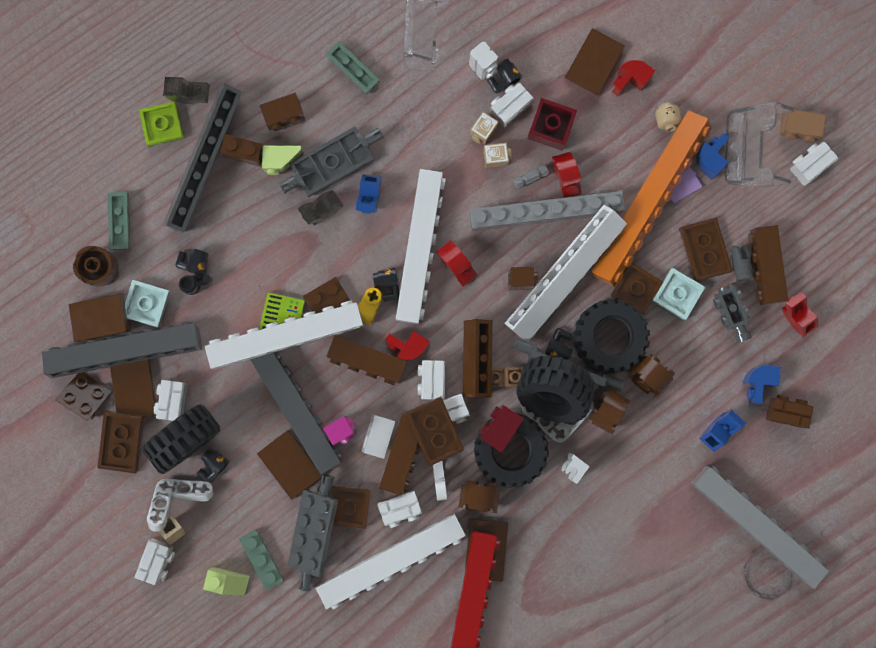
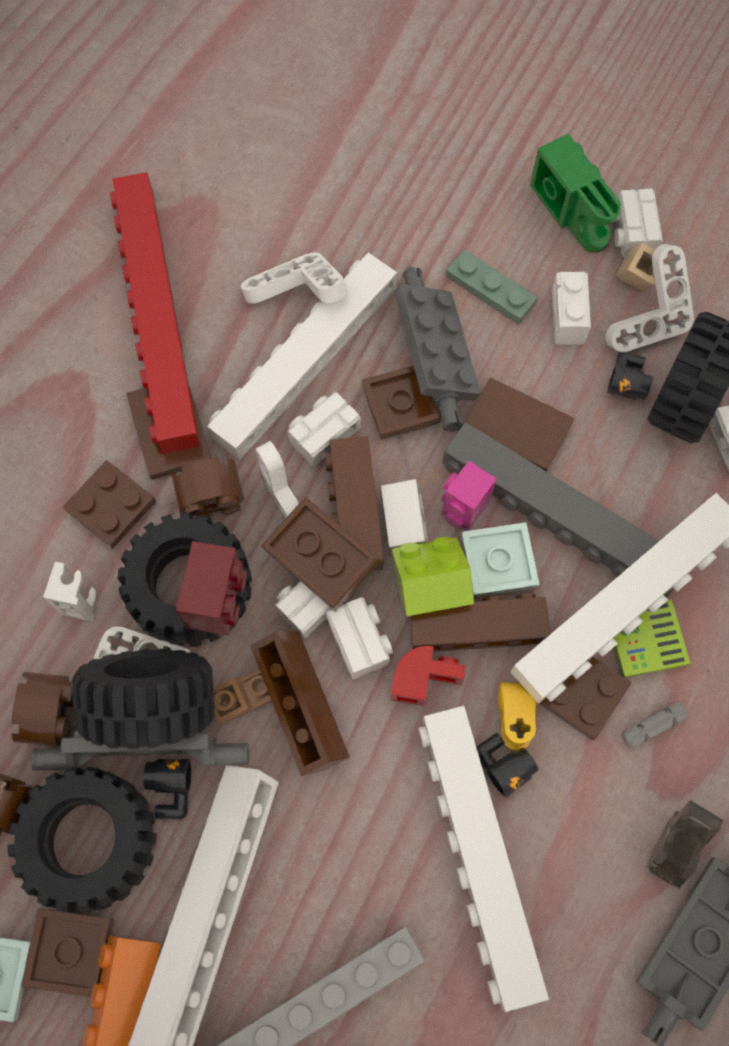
camera: 160 degrees right, 15 degrees down
(182, 596) = (575, 192): none -> green brick
(223, 522) = (571, 308): none -> white brick
(226, 582) = (526, 236): yellowish green slope -> none
(302, 270) = (655, 725): none -> light grey axle
(338, 390) = (500, 559): none -> light aqua plate
(367, 613) = (308, 269): none -> white beam
(368, 194) = (613, 908): blue brick -> none
(380, 393) = (432, 576): none -> lime brick
(457, 263) = (405, 852): red brick -> none
(522, 278) = (278, 873): reddish brown brick -> none
(536, 516) = (109, 504): none -> reddish brown plate

